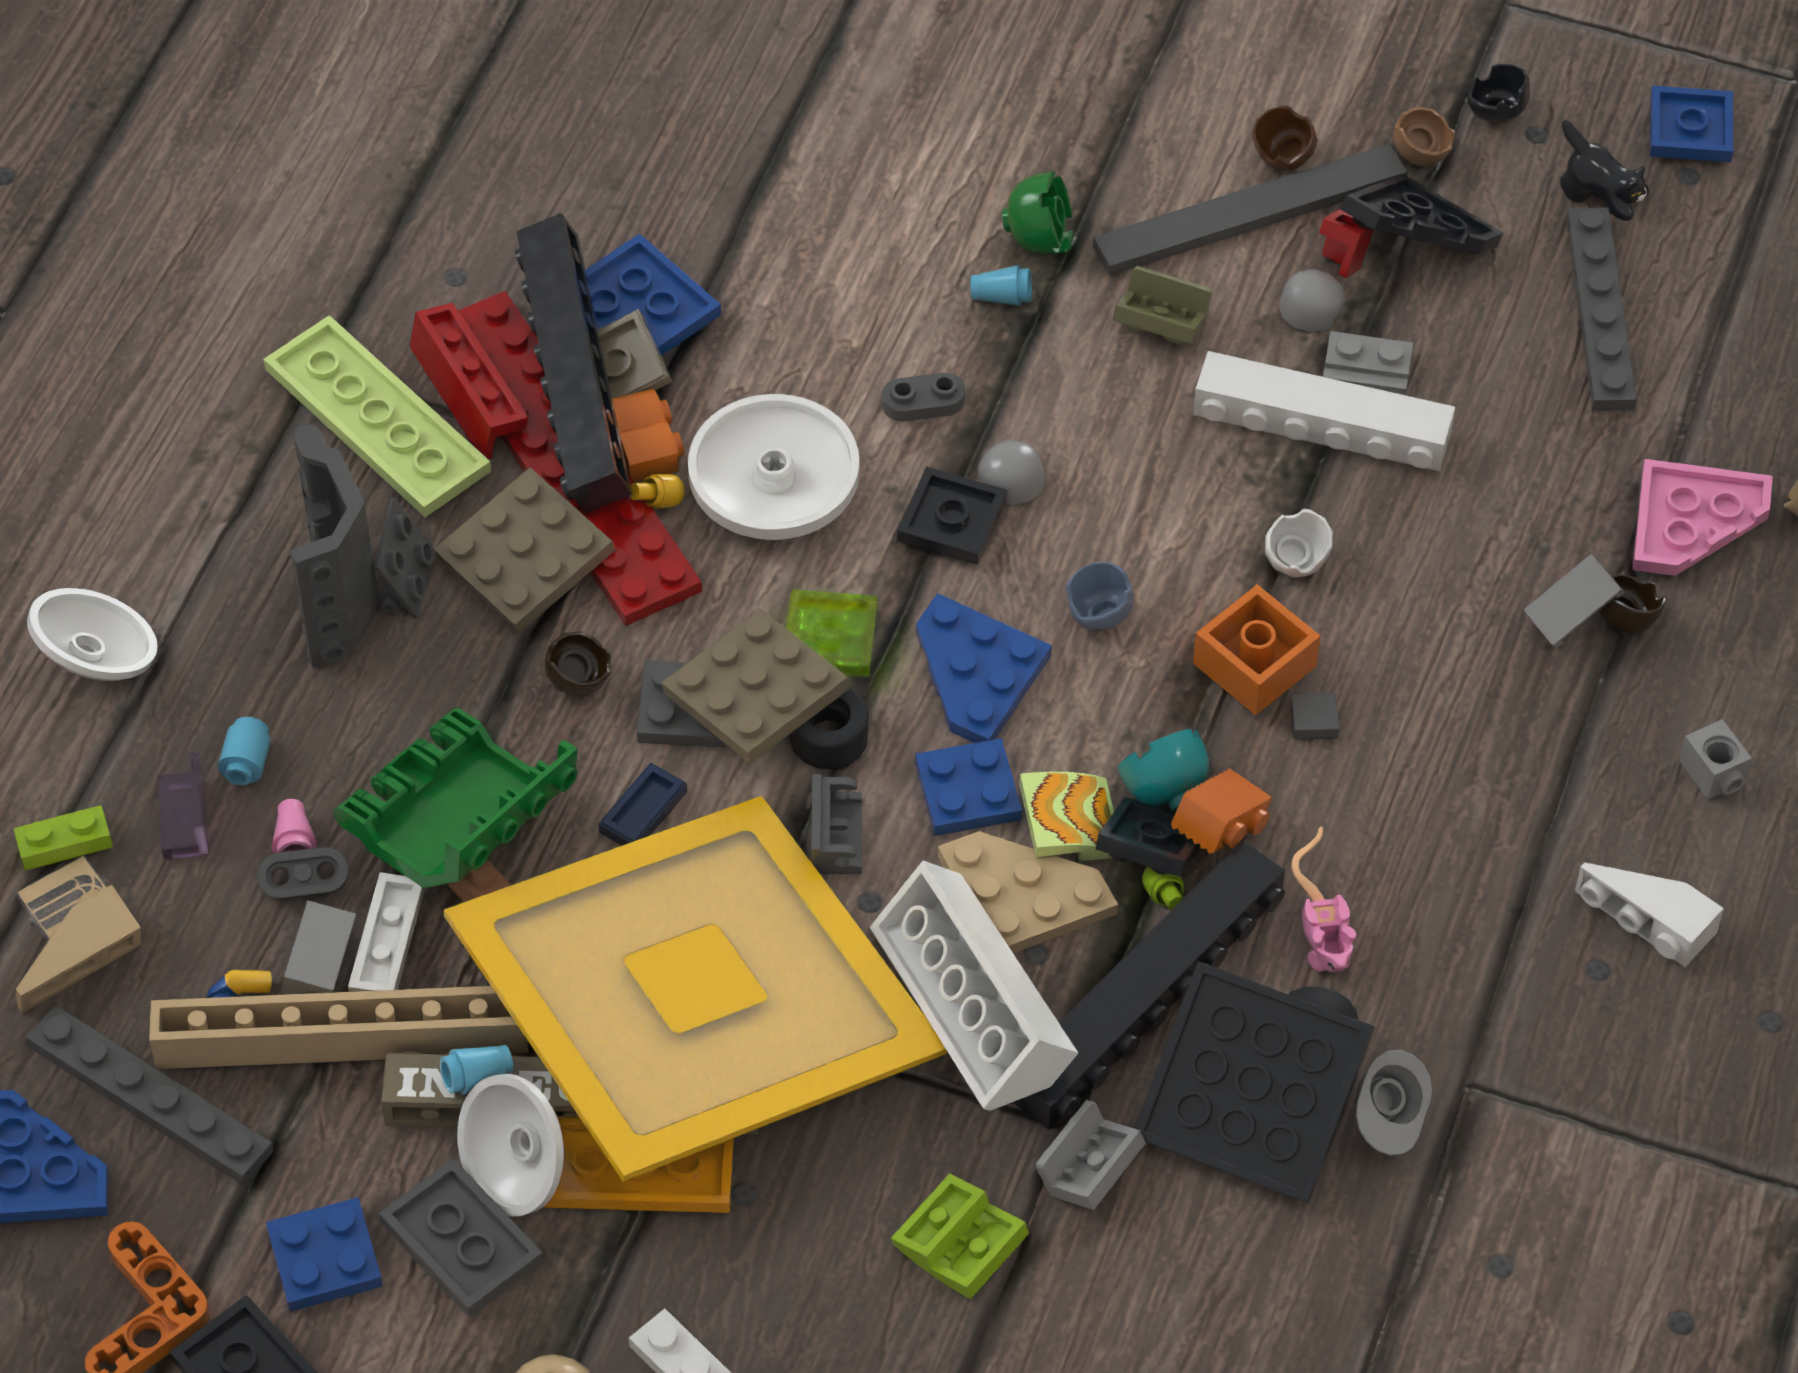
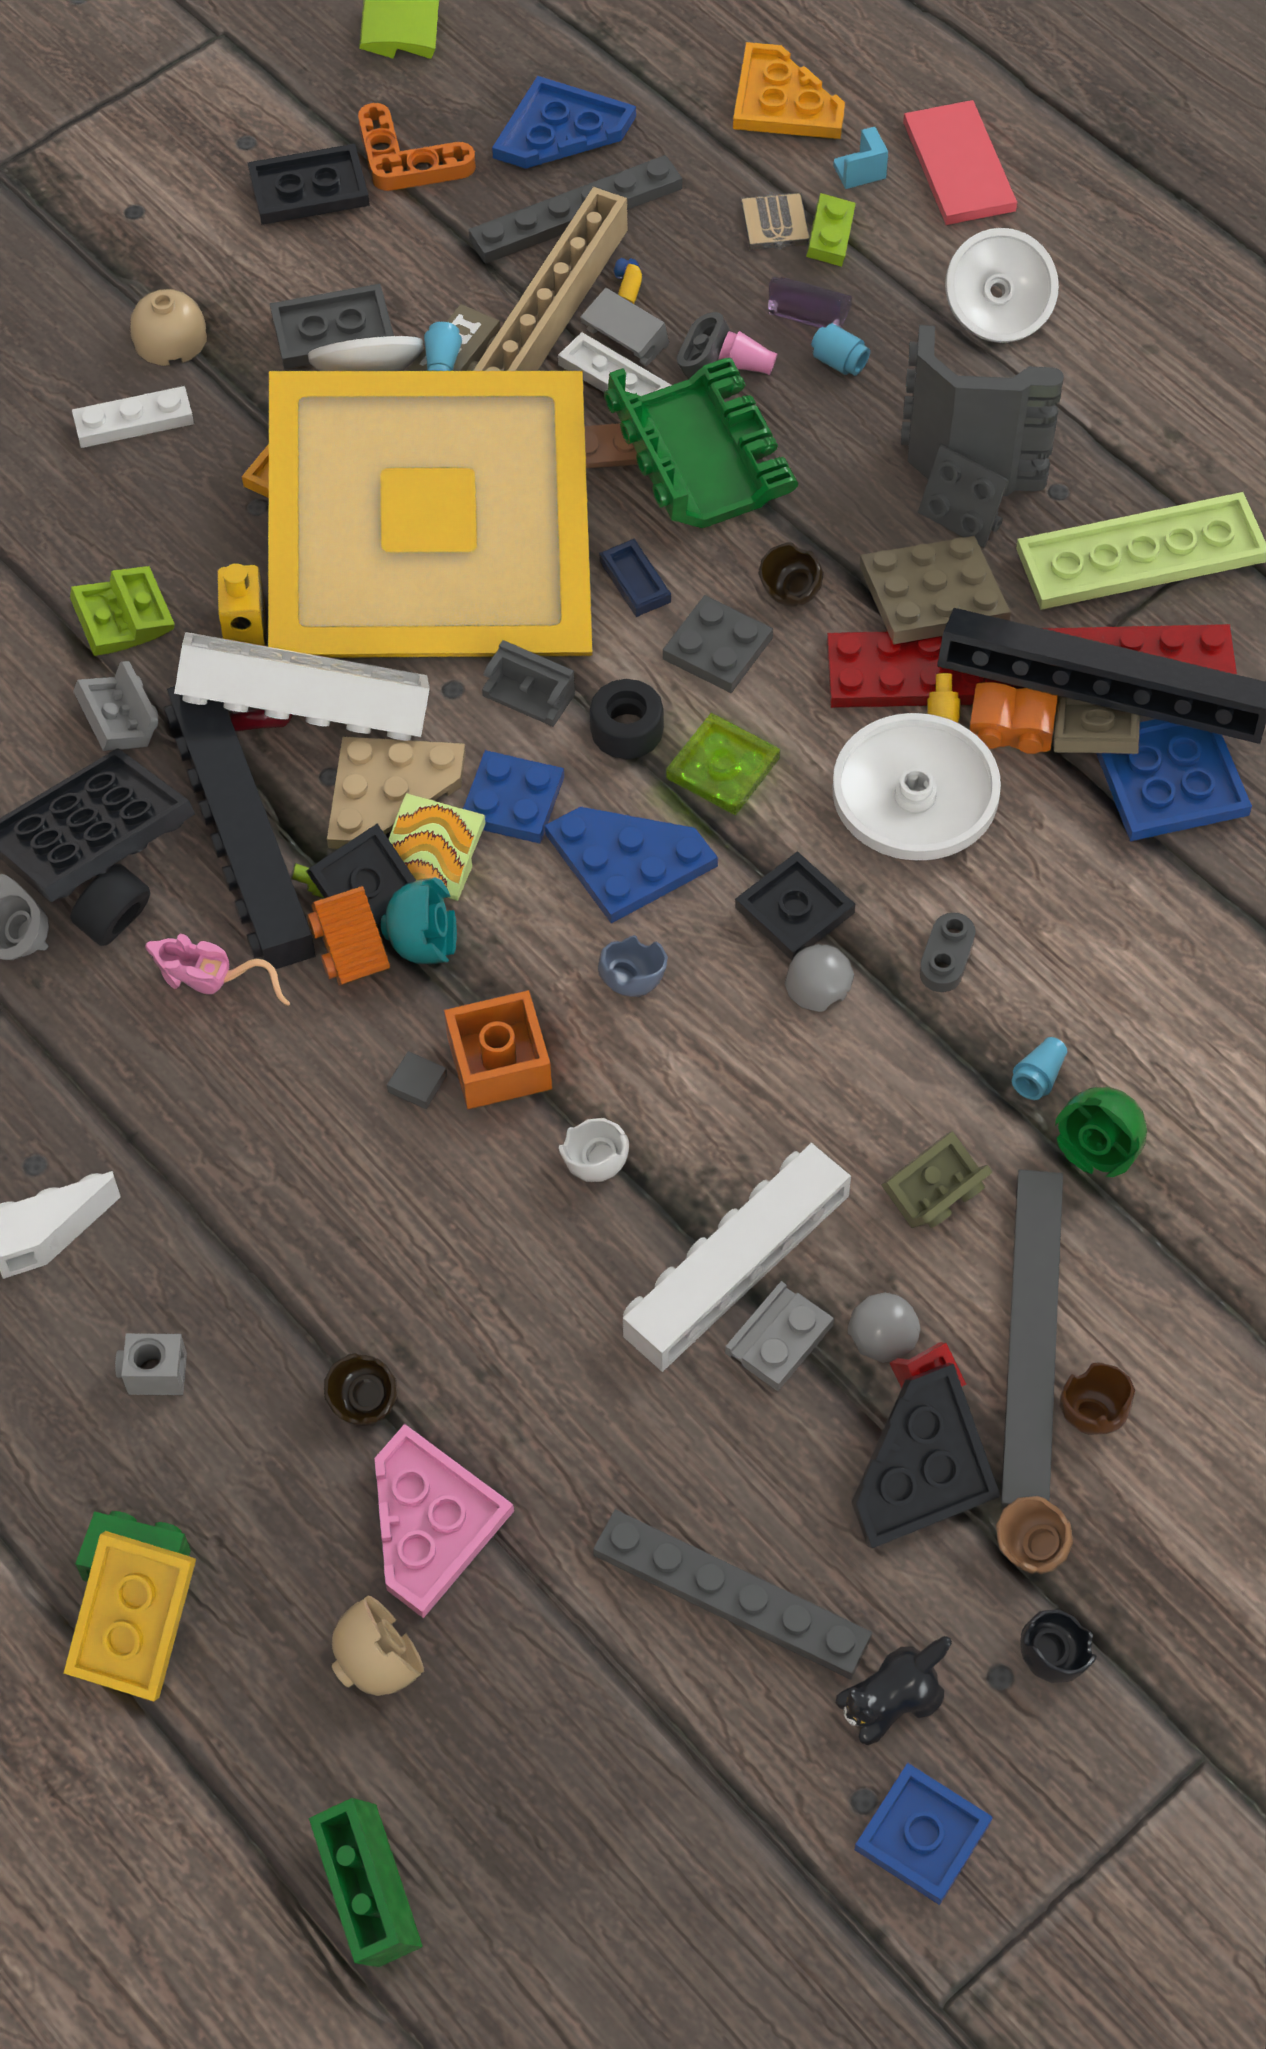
camera: 120 degrees right, 5 degrees up
(86, 940) = (723, 203): tan slope -> none
(324, 1254) = (378, 255): blue plate -> none
(465, 377) = (1144, 613): red panel -> none
(755, 686) = (685, 668): dark tan plate -> none
(903, 1104) = (241, 596): none -> yellow torso
(1573, 600) = (382, 1328): light grey hinge -> none

